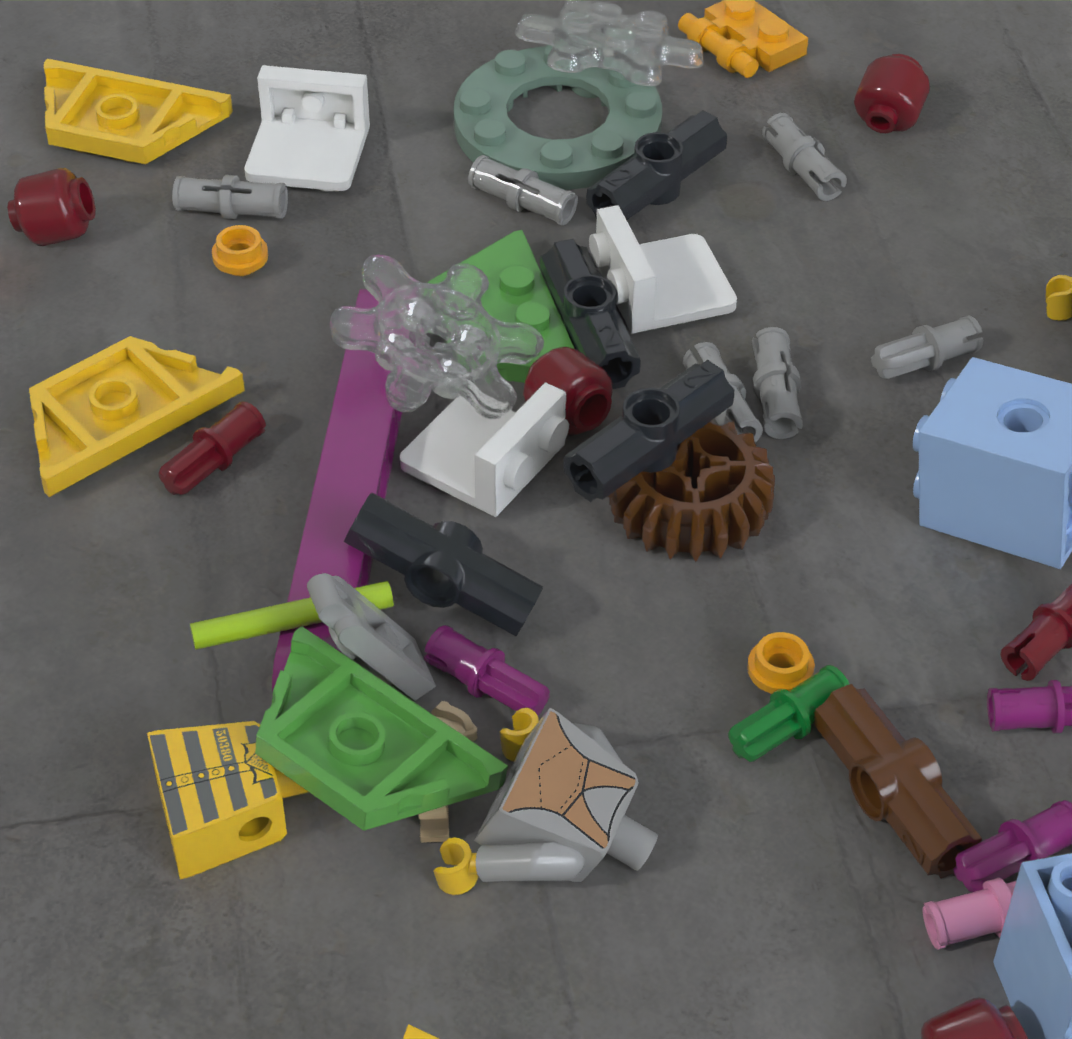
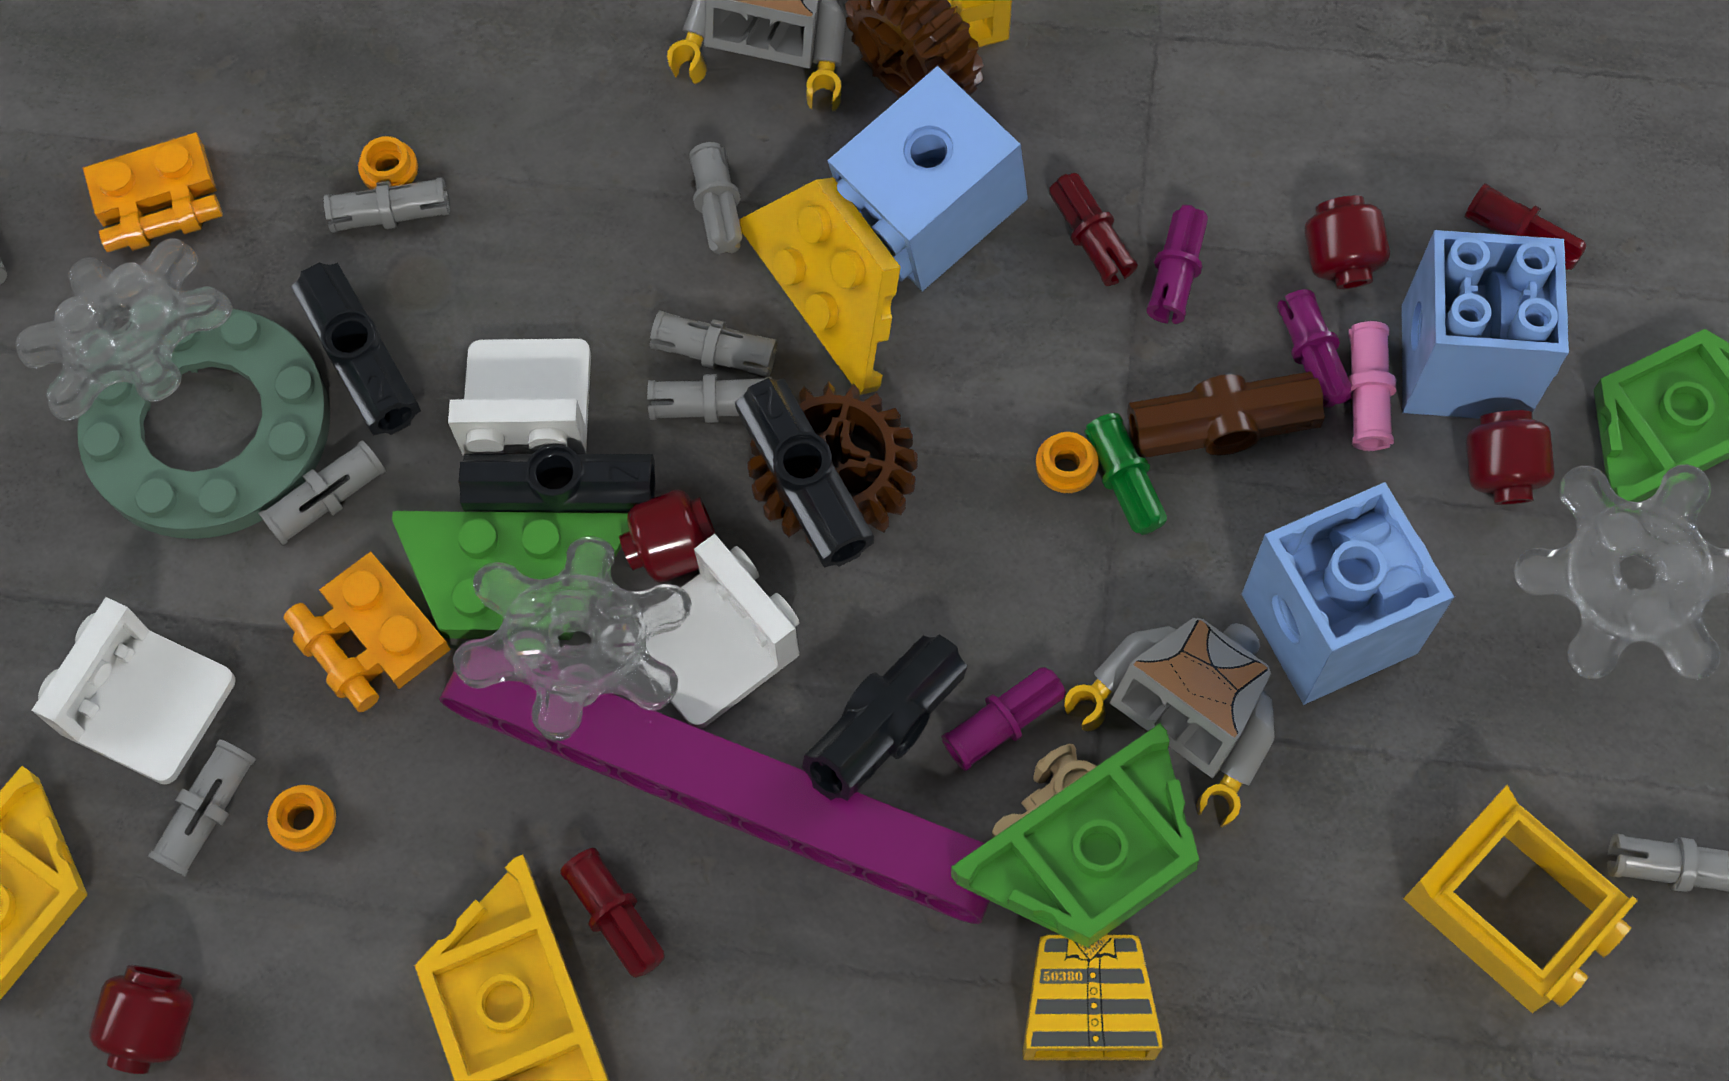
camera: 70 degrees left, 20 degrees up
(274, 618) = (920, 877): lime bar -> none
(371, 635) = (973, 804): light grey hinge -> none
(426, 245) = (383, 620): none -> light orange plate
(704, 879) = (1345, 592): none -> light blue brick
(844, 145) = (387, 152): none -> light orange plate
(882, 422) = (831, 272): none -> yellow wing
(892, 93) = (334, 88): dark red head -> none

